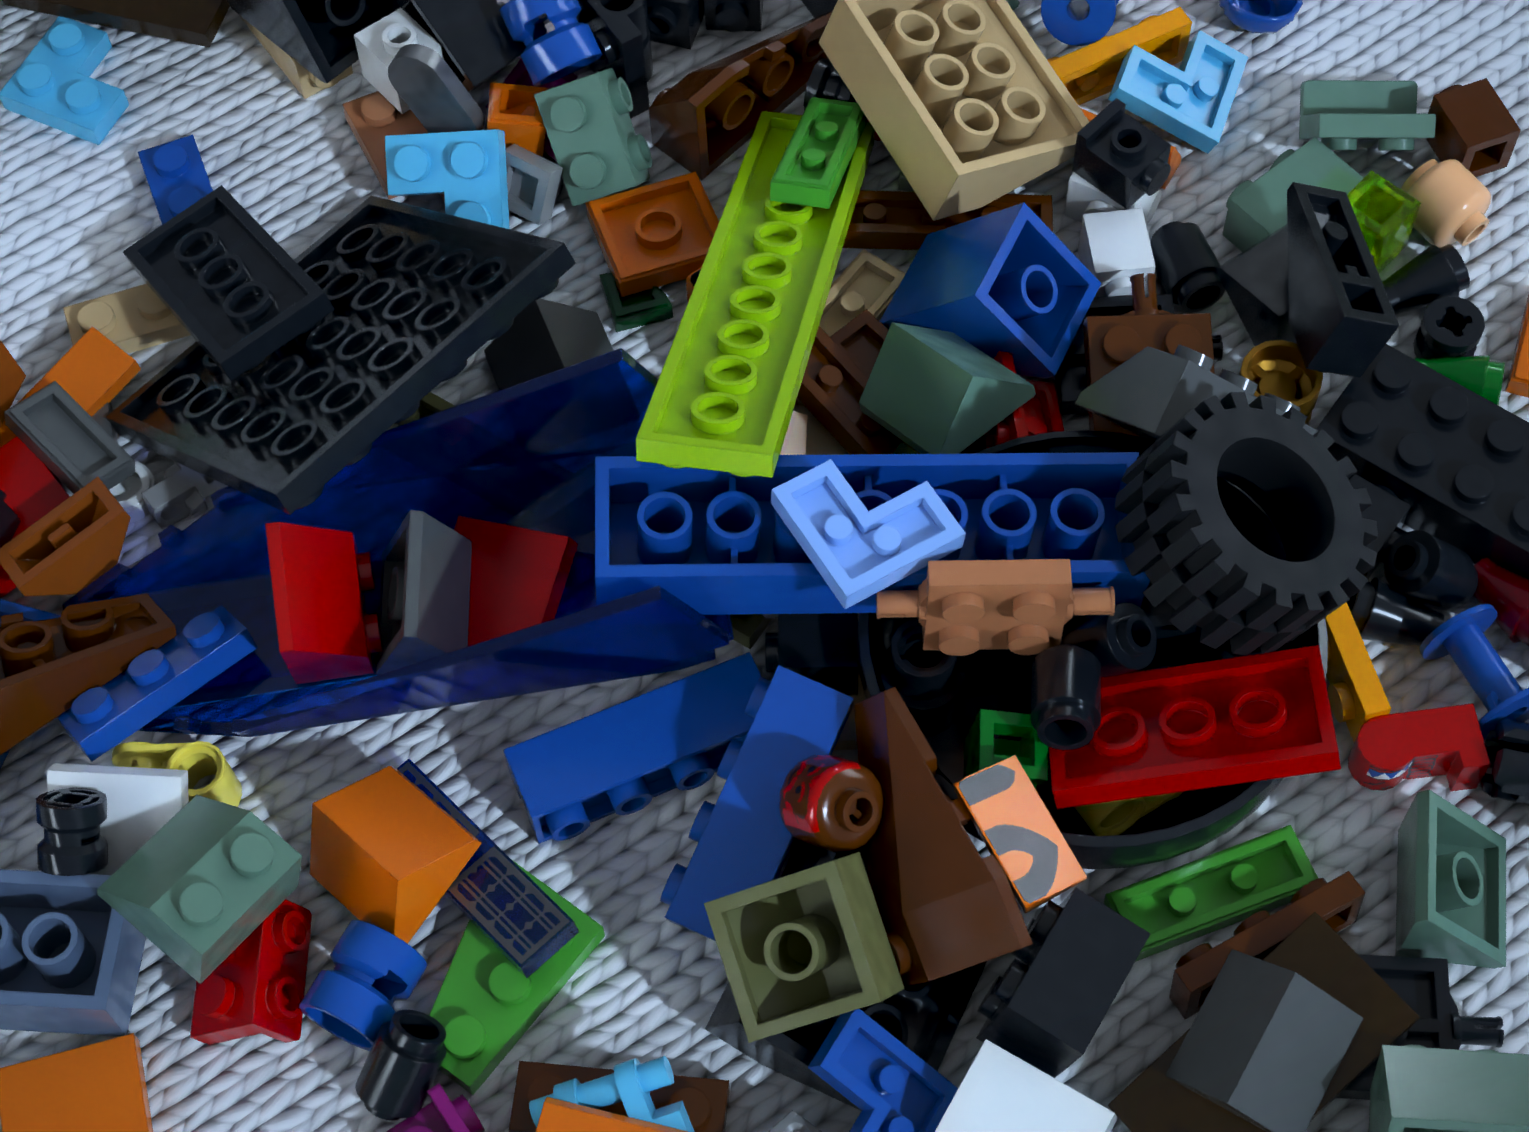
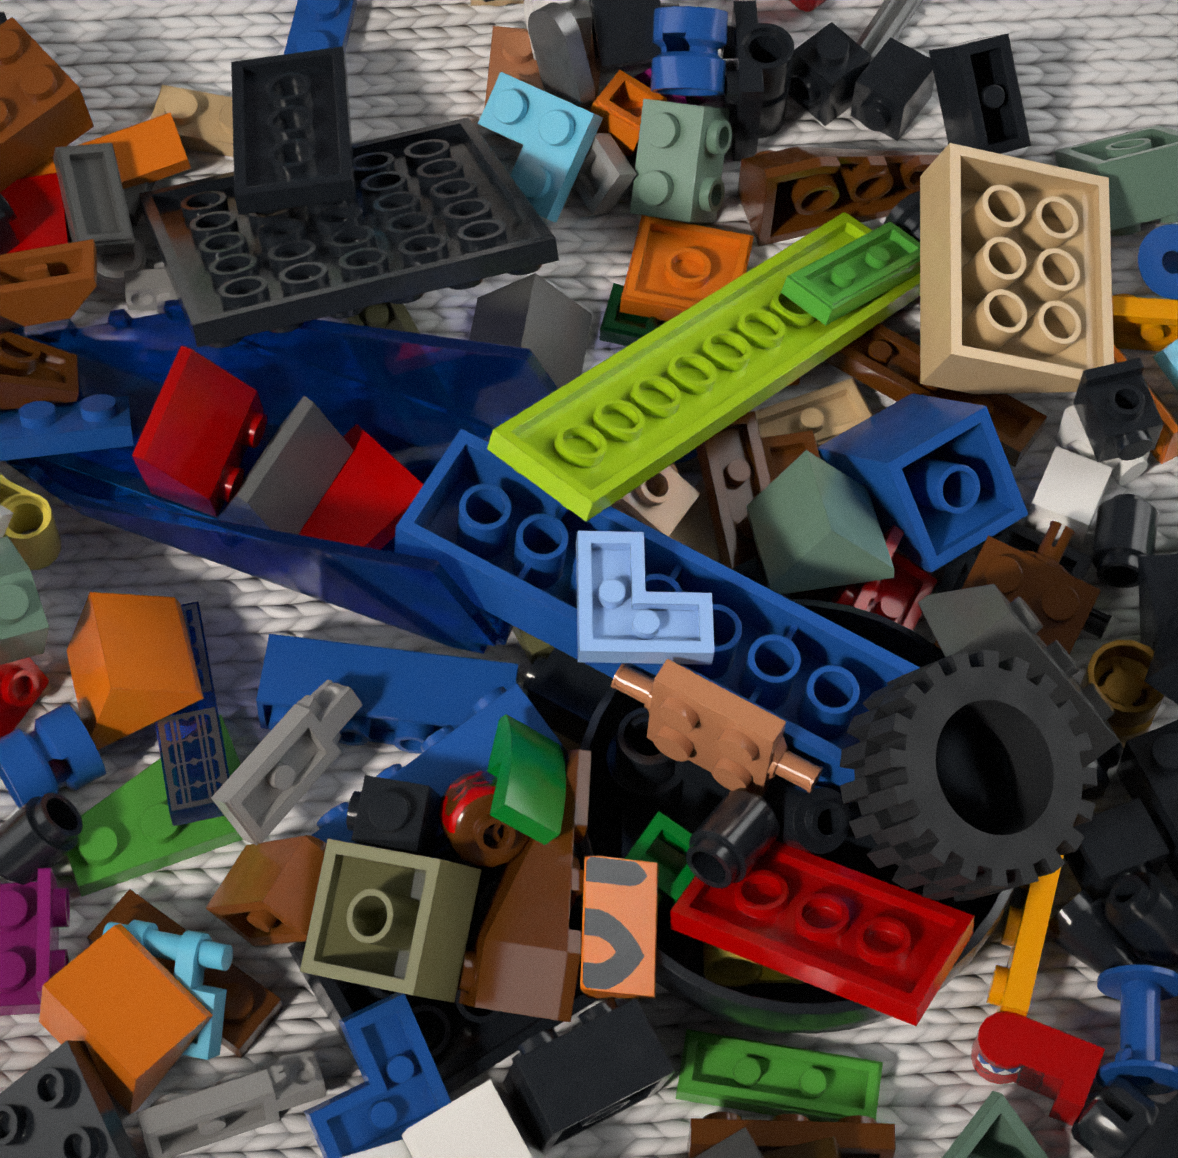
camera: 25 degrees right, 0 degrees up
(603, 857) = (286, 762): none -> light grey hinge
(666, 982) = (271, 890): none -> dark orange brick
(745, 849) = (394, 816): none -> black brick
(861, 742) = (529, 780): none -> green slope

